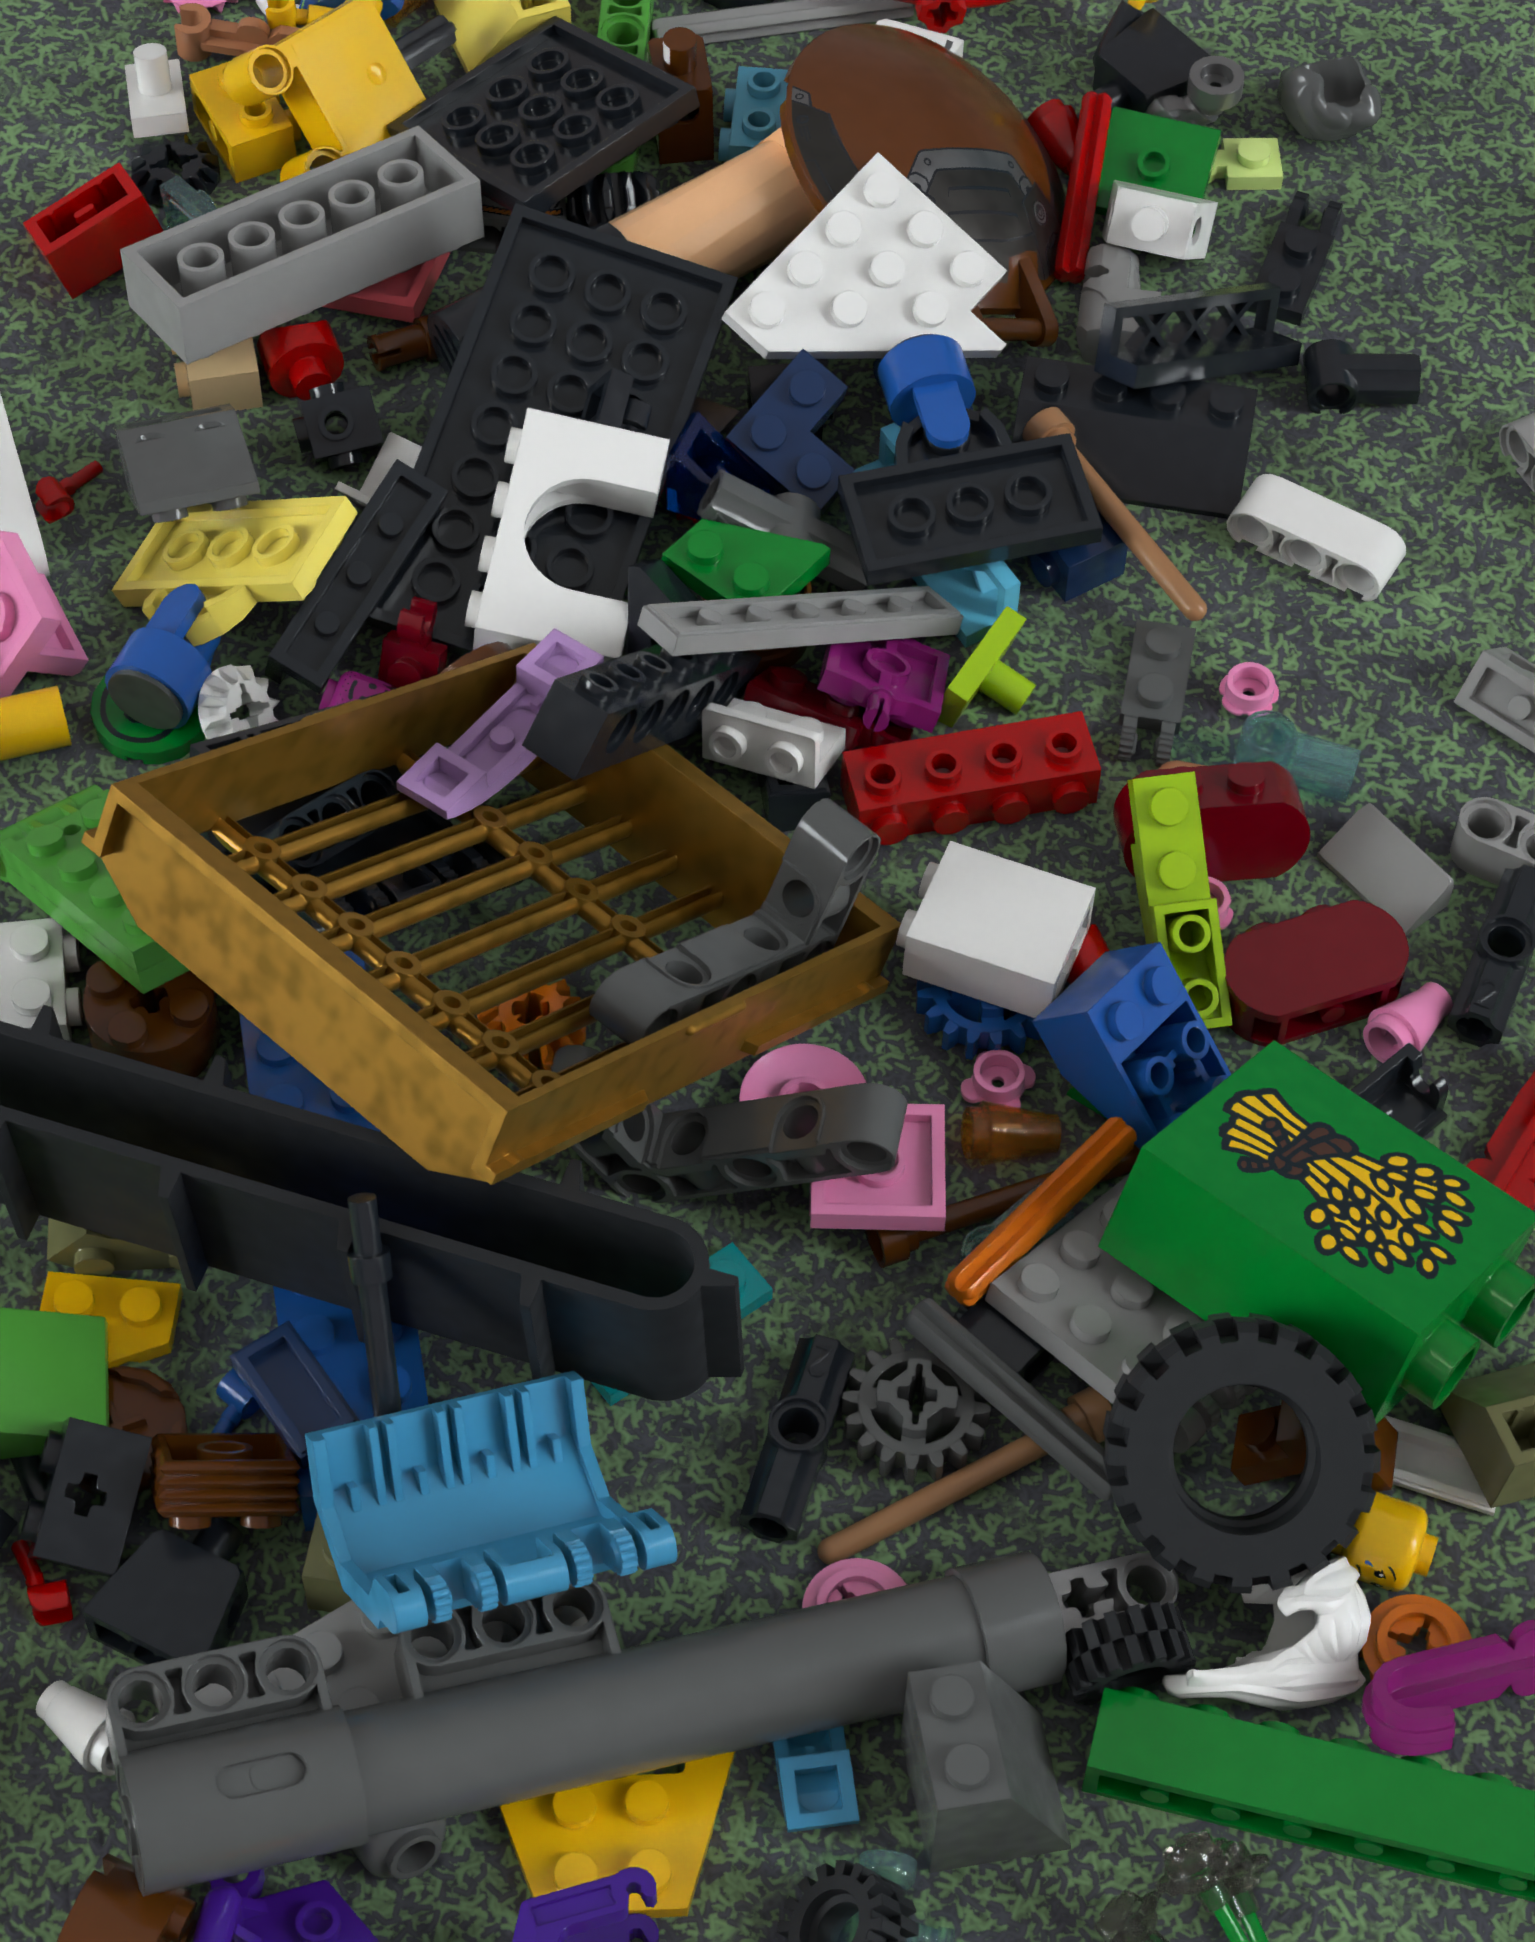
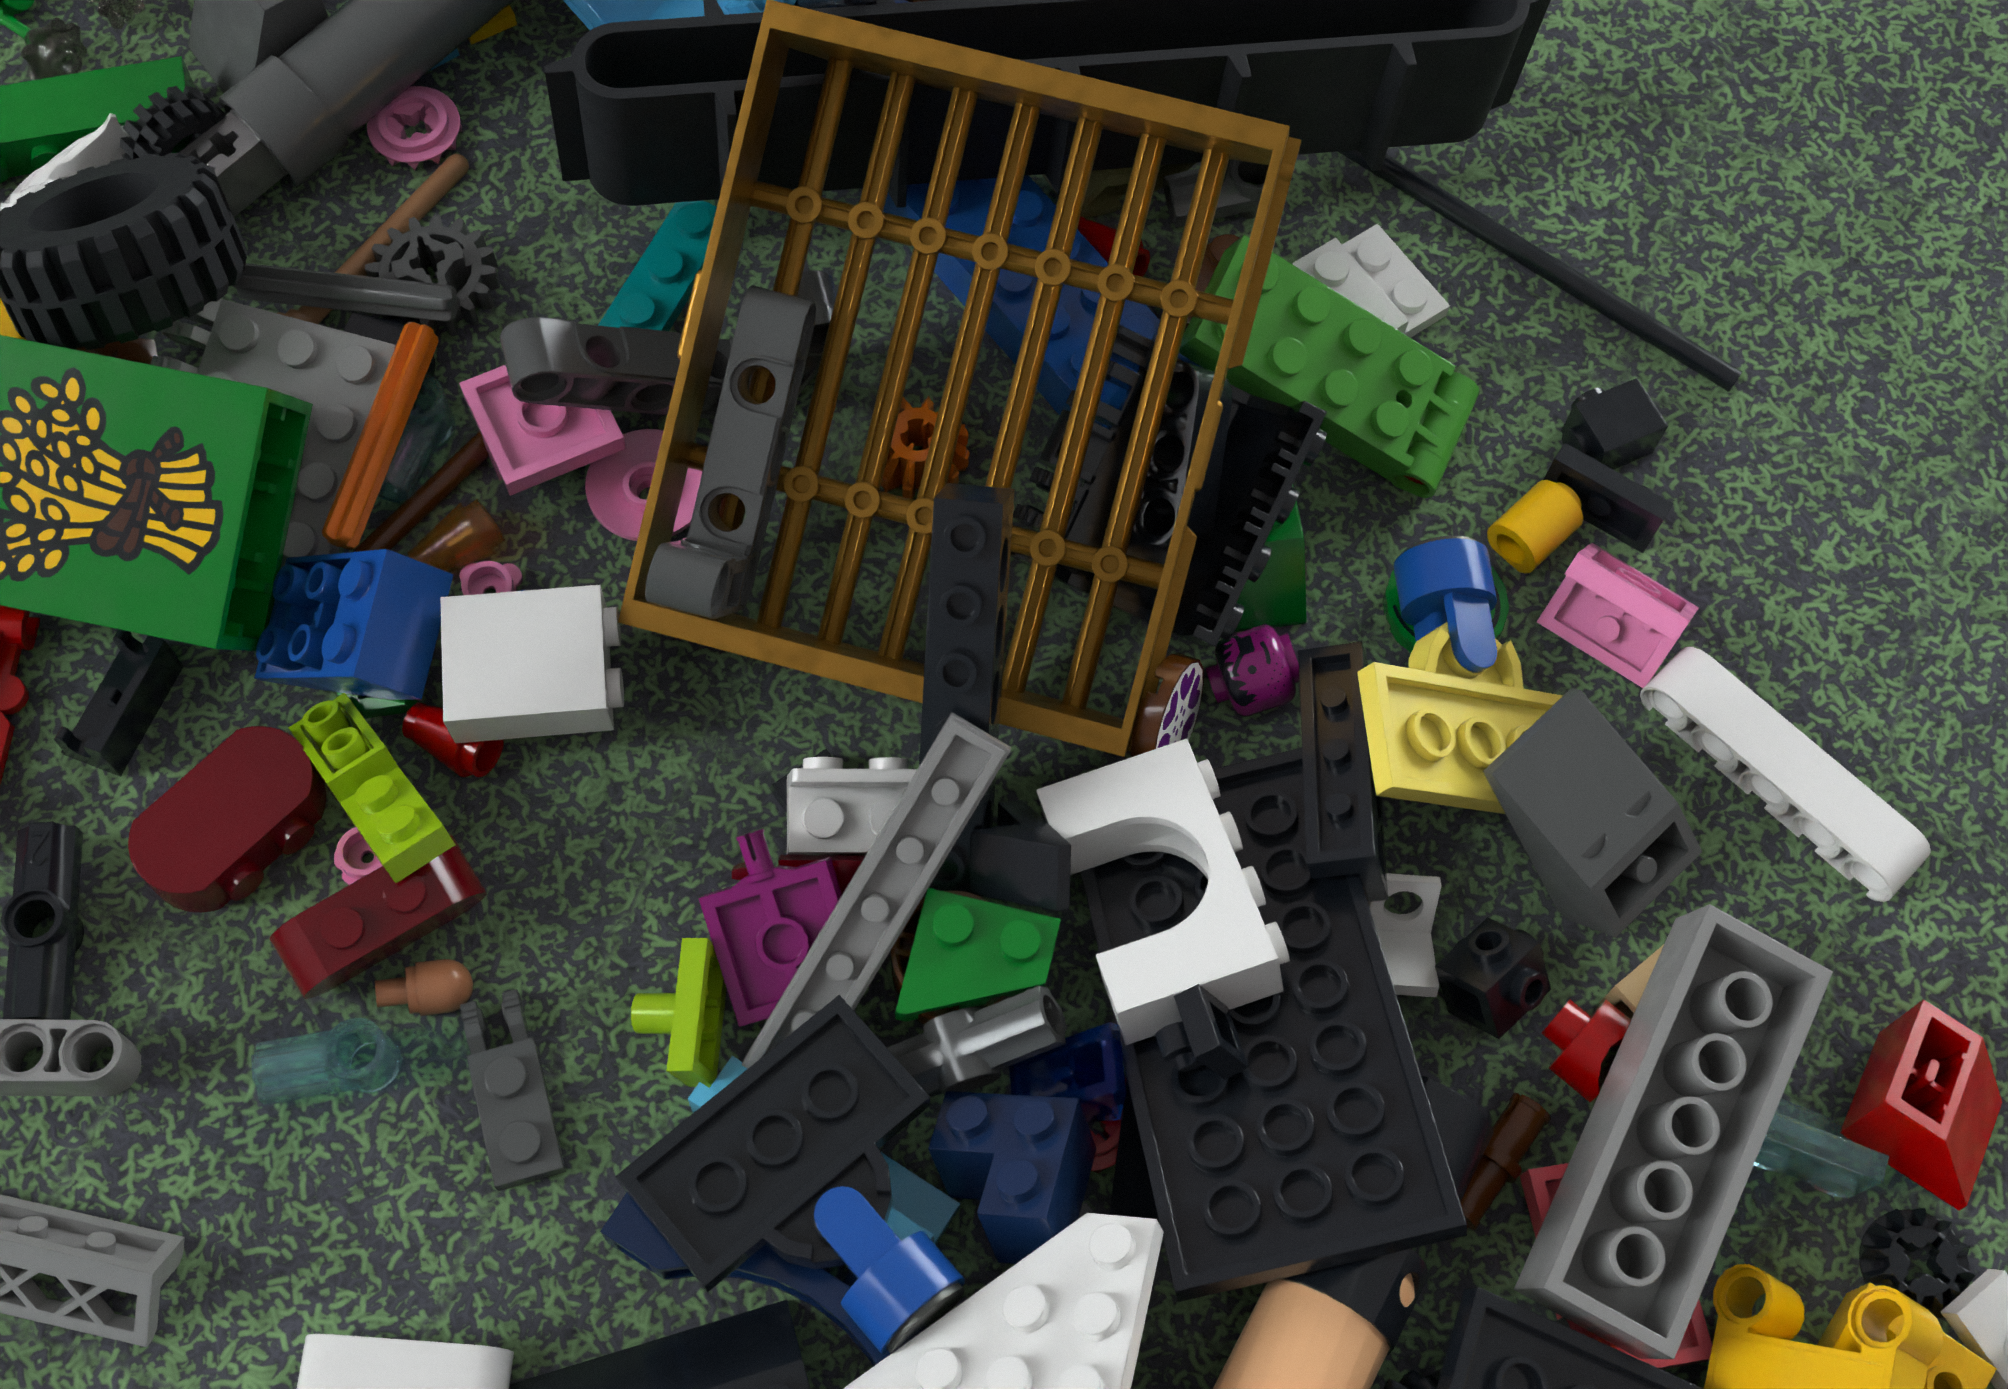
camera: 150 degrees right, 10 degrees up
(55, 495) = (1705, 778): red hand -> none
(227, 690) = (1369, 588): white gear -> none
(410, 652) = (1242, 738): dark red plate -> none
(492, 748) = (1084, 616): lavender slope -> none
(789, 1470) = (518, 241): black piece -> none
(972, 777) = (644, 878): red brick -> none
(1054, 422) = (733, 1318): medium nougat piece -> none
(1252, 678) = (398, 1124): bright pink plate -> none
(1387, 868) = (195, 982): light grey slope -> none
(1406, 1021) = (115, 808): bright pink cone -> none

